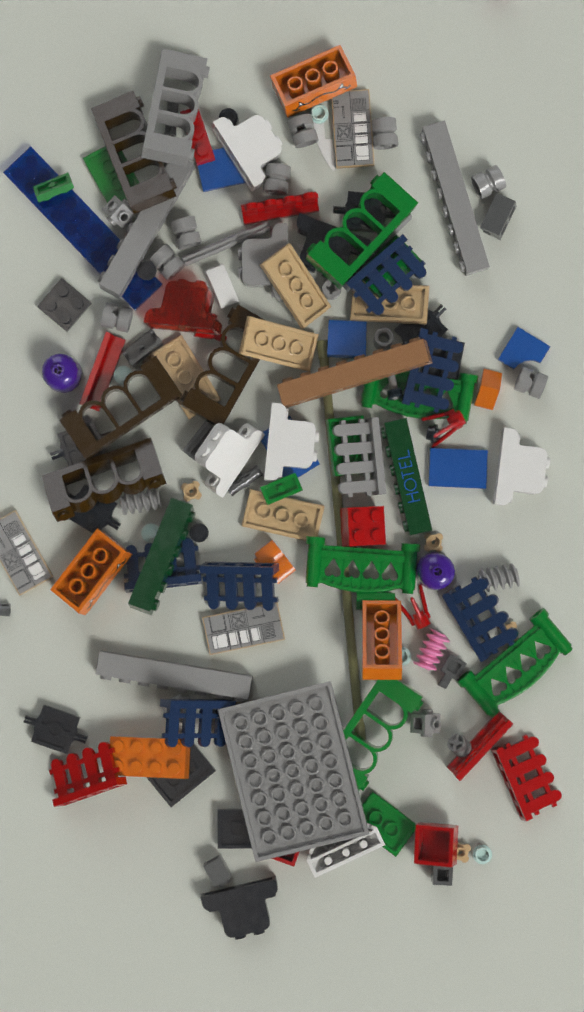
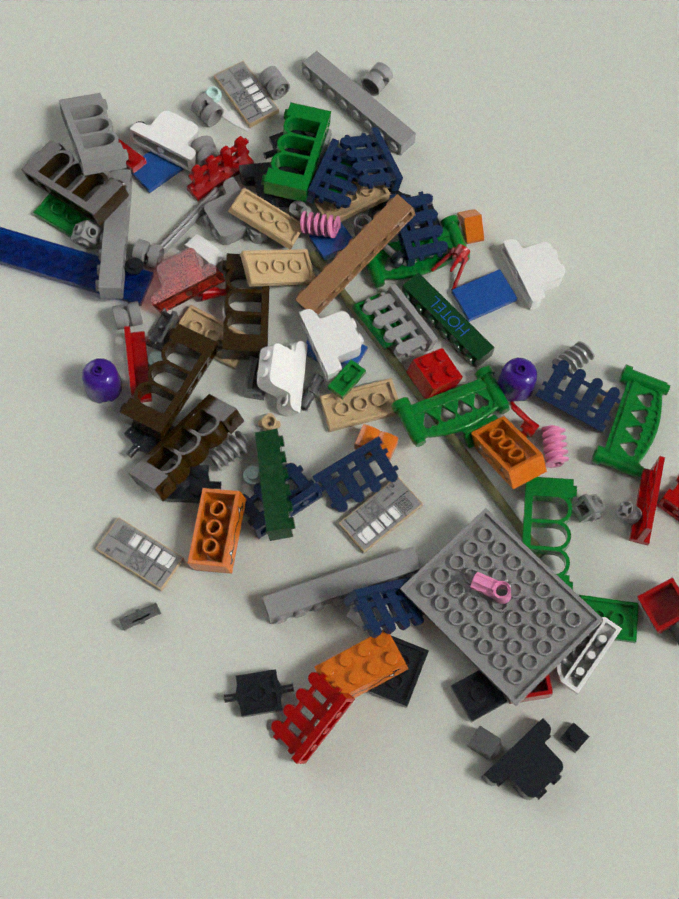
camera: 25 degrees left, 20 degrees down
(53, 187) = (14, 245): green plate -> none
(64, 305) = (76, 330): black plate -> none
(186, 233) = (153, 225): light grey wheel -> none
(199, 532) = (295, 454): black plate -> none
(289, 754) = (490, 586): none -> bright pink piece
(295, 905) = (574, 737): none -> black plate
(313, 81) = (195, 70): orange brick -> none
(341, 320) = (318, 225): none -> bright pink piece
(429, 538) = (502, 356): tan plate -> none
(432, 429) = (447, 277): black plate -> none
(441, 269) = (381, 161): none -> dark blue fence
(452, 668) = (582, 454): dark grey plate -> none
(498, 216) = (400, 99): dark grey hinge -> none
(523, 348) = (478, 183): blue tile -> none
(531, 382) = (502, 201): light grey wheel -> none

